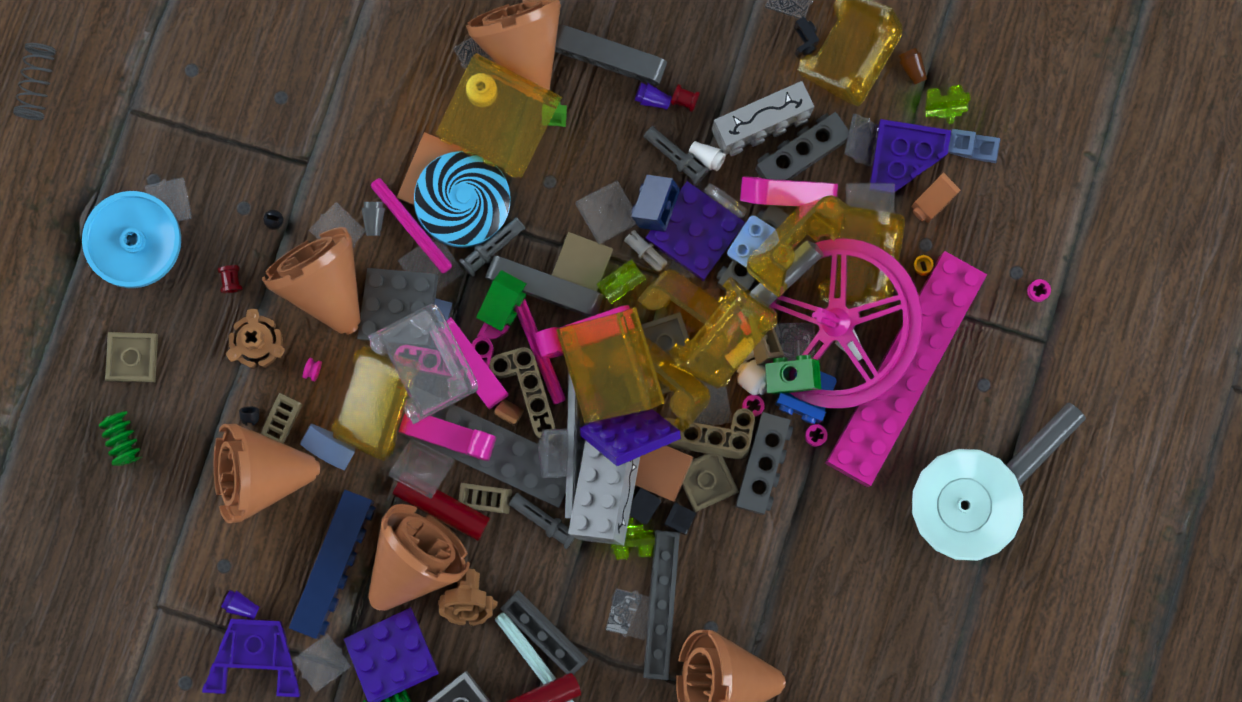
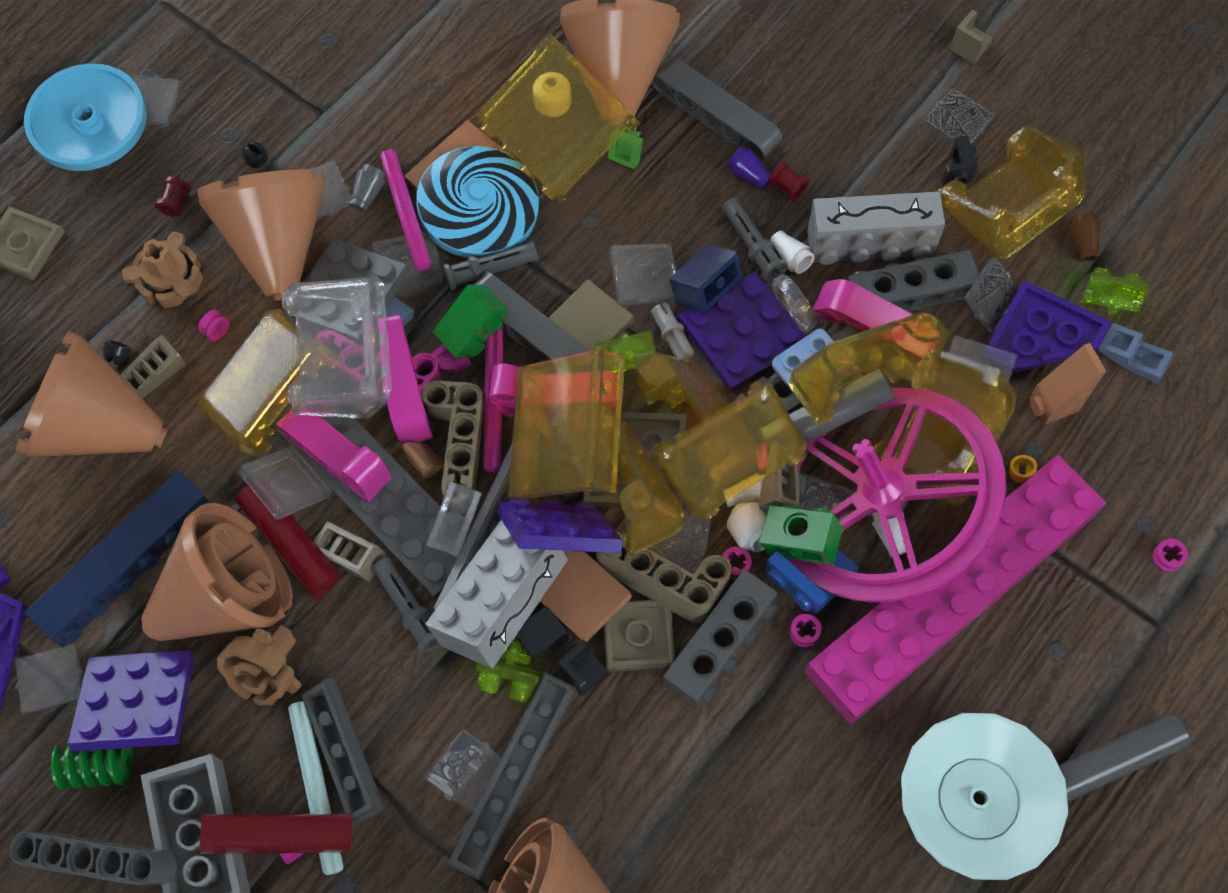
camera: 30 degrees right, 15 degrees down
(324, 446) = (185, 418): sand blue slope -> none

